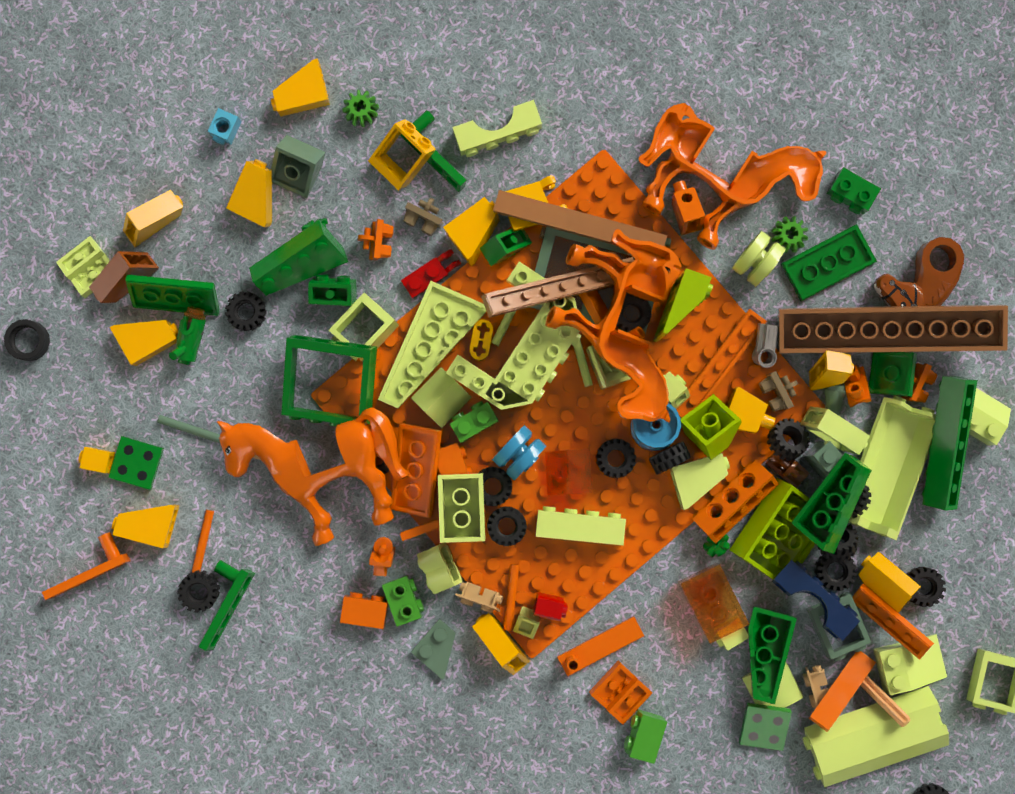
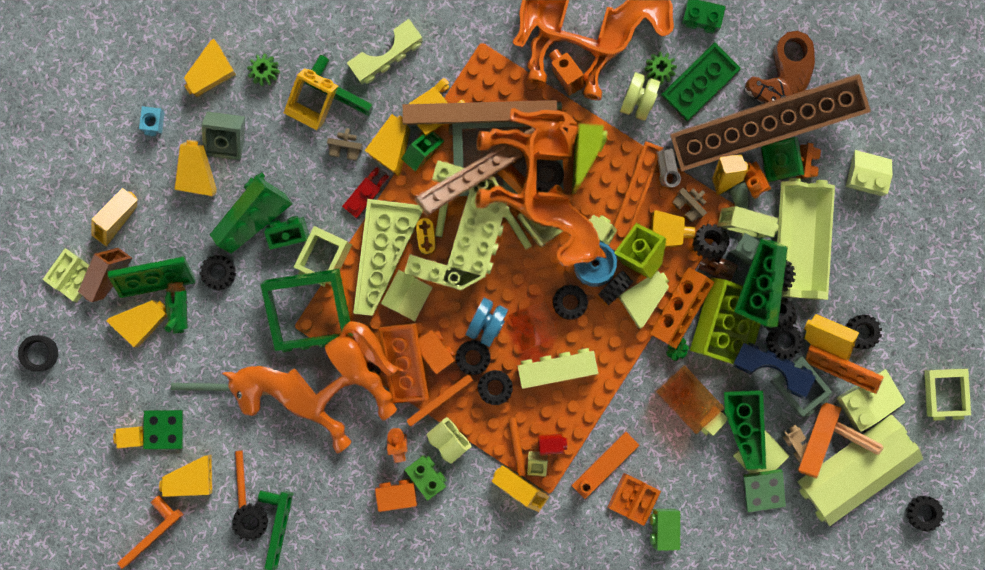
camera: 15 degrees left, 0 degrees up
(379, 230) = (310, 169): orange hips -> none
(436, 648) = (466, 509): sand green wing -> none
(461, 508) = (452, 383): yellowish green brick -> none
(473, 422) = (440, 308): bright green brick -> none
(487, 601) = (482, 454): tan hinge -> none
(949, 442) = (847, 203): green brick -> none

